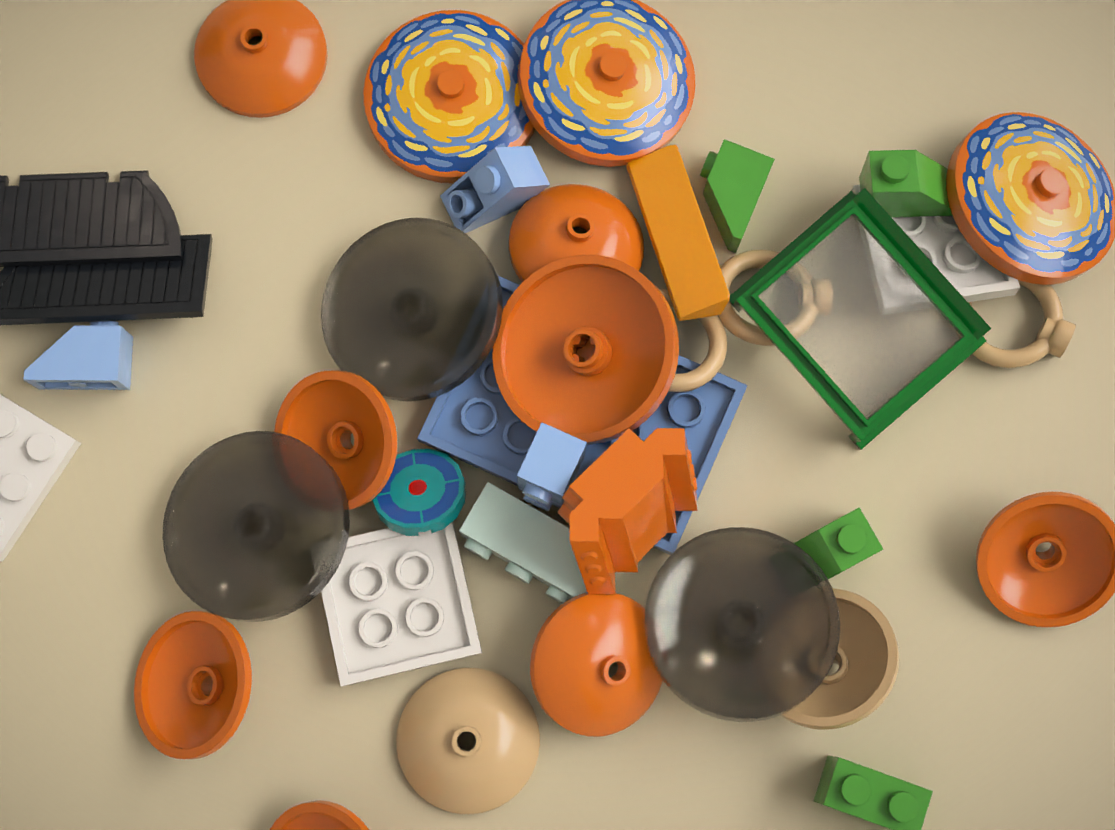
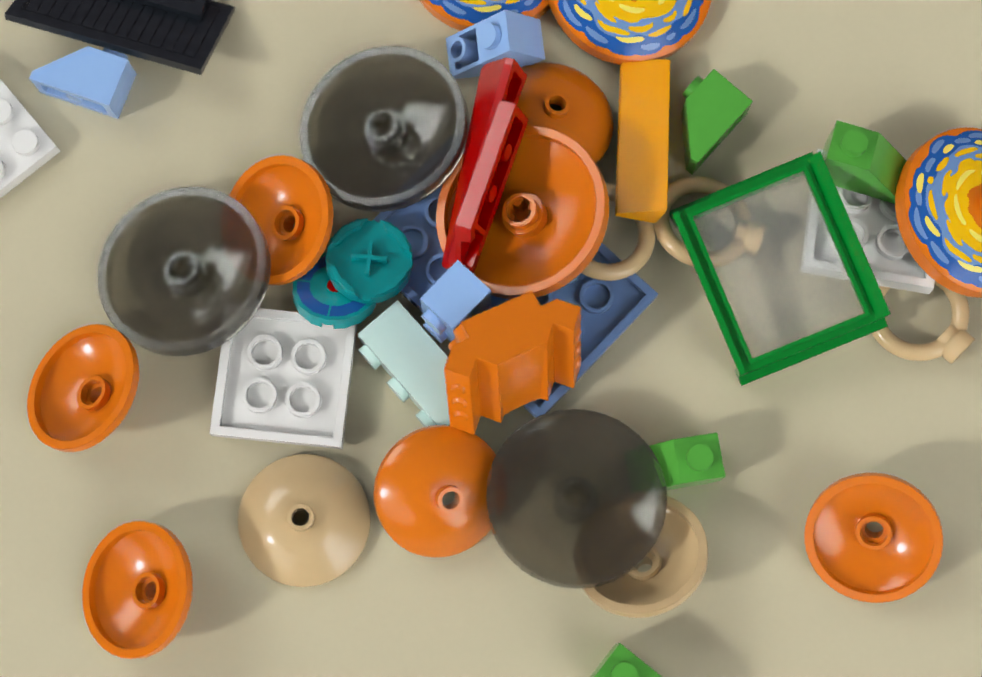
camera: 20 degrees right, 0 degrees up
(444, 451) = (369, 261): none -> teal tile
(531, 309) = (487, 160): none -> red wedge

